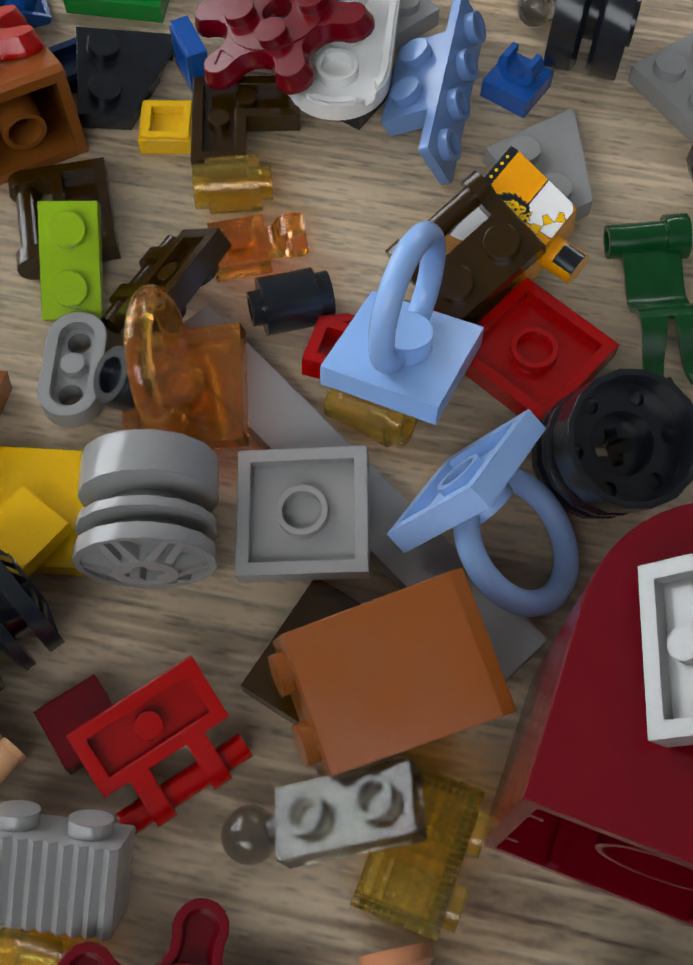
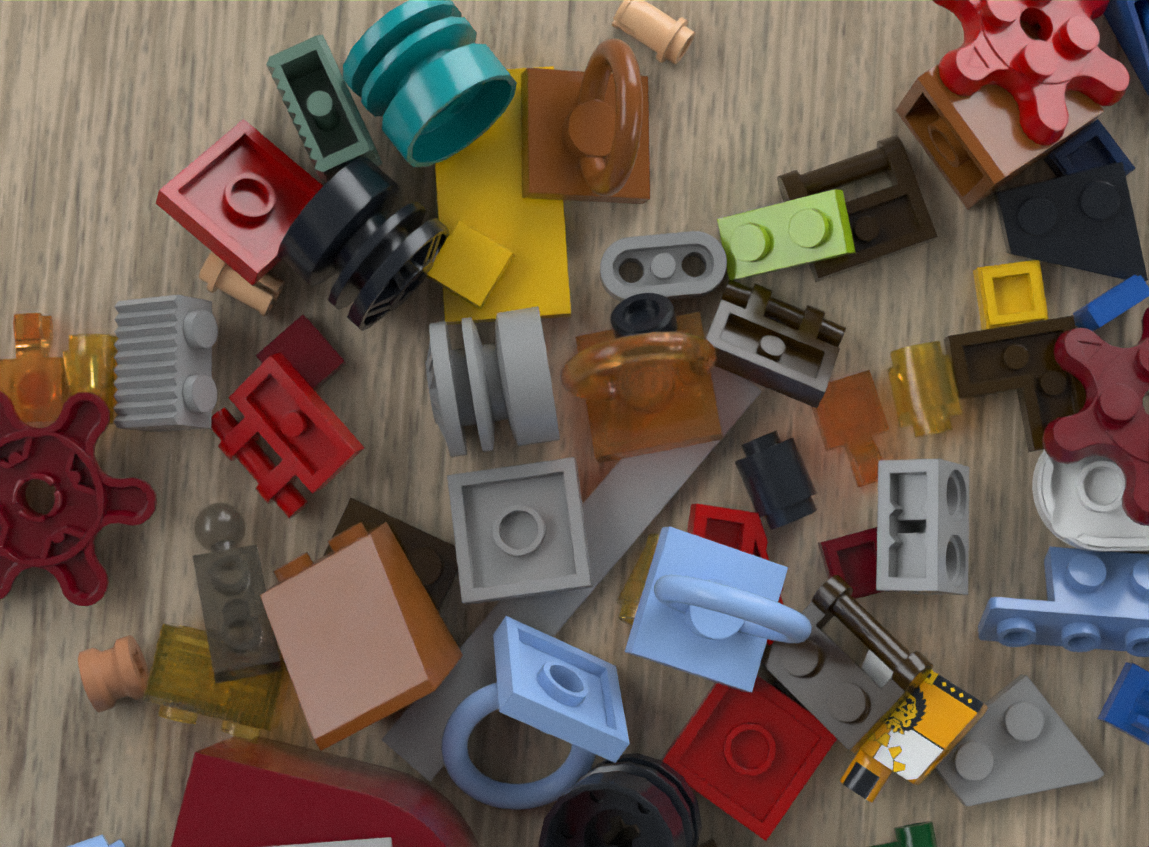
camera: 80 degrees right, 20 degrees up
(351, 188) = (922, 527): none -> light grey brick
(367, 254) = (854, 560): none -> dark red tile

